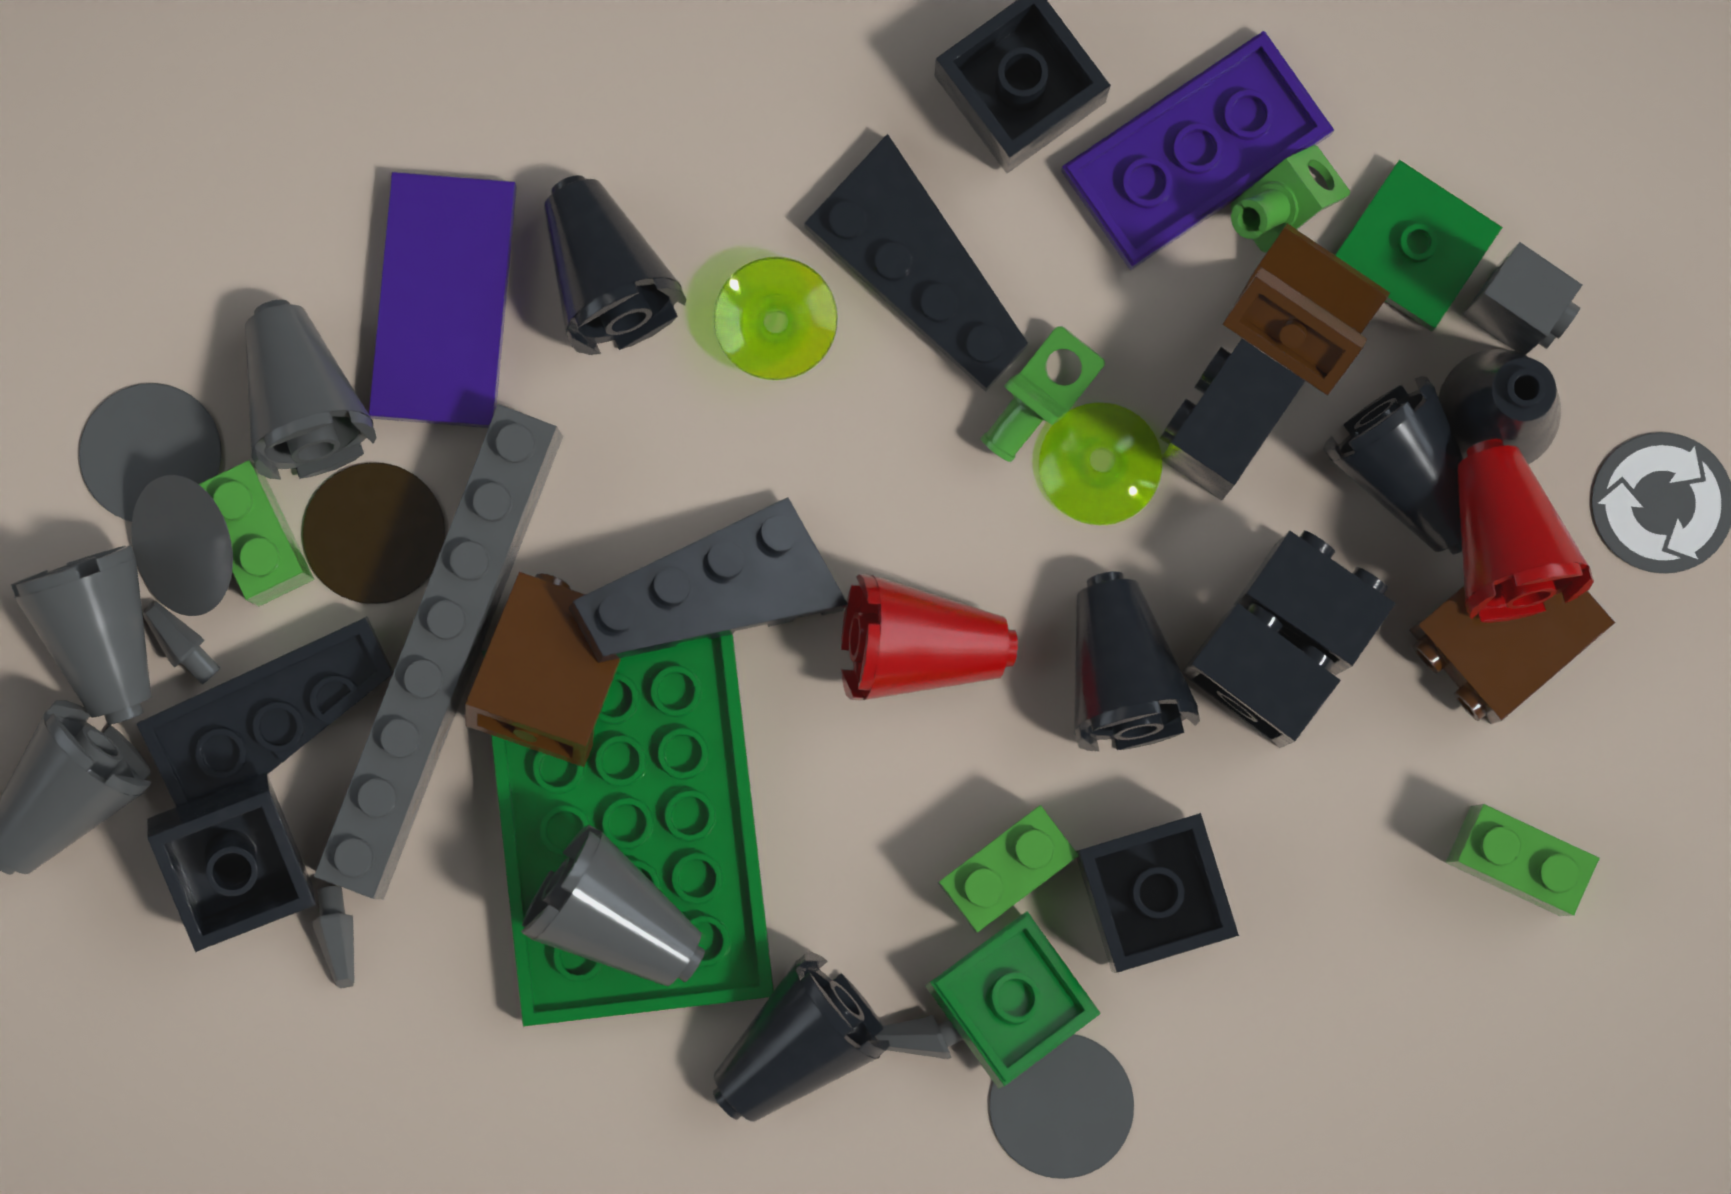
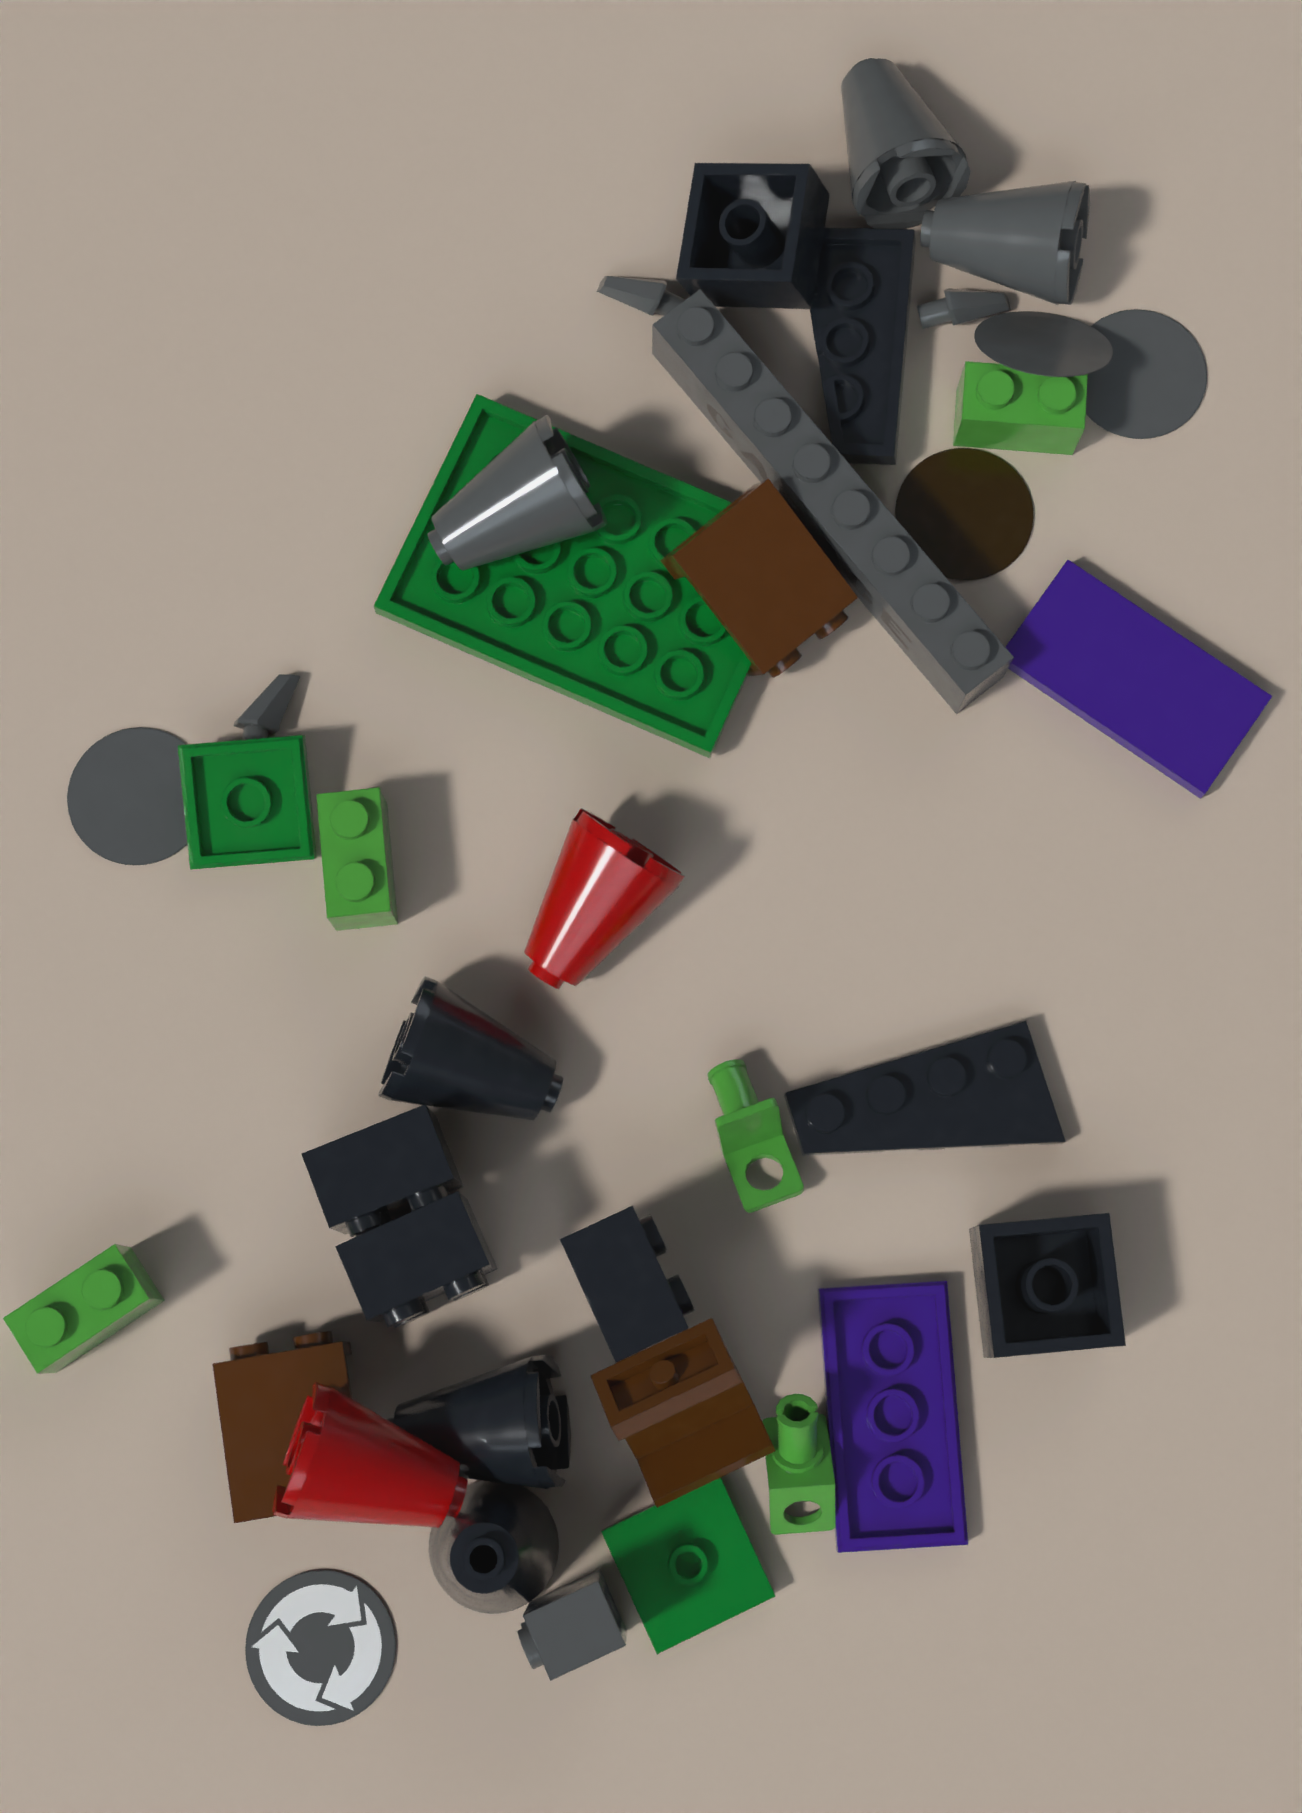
camera: 120 degrees right, 5 degrees down
(299, 397) = (1118, 505): dark grey cone -> none
(605, 270) = (1082, 820): black cone -> none
(721, 584) = (746, 761): black wing -> none
(767, 288) = (971, 918): clear neon green dish -> none
(798, 1042) = (322, 607): black cone -> none
(1096, 495) = (655, 1190): clear neon green dish -> none
(1156, 893) = (256, 969): black brick -> none

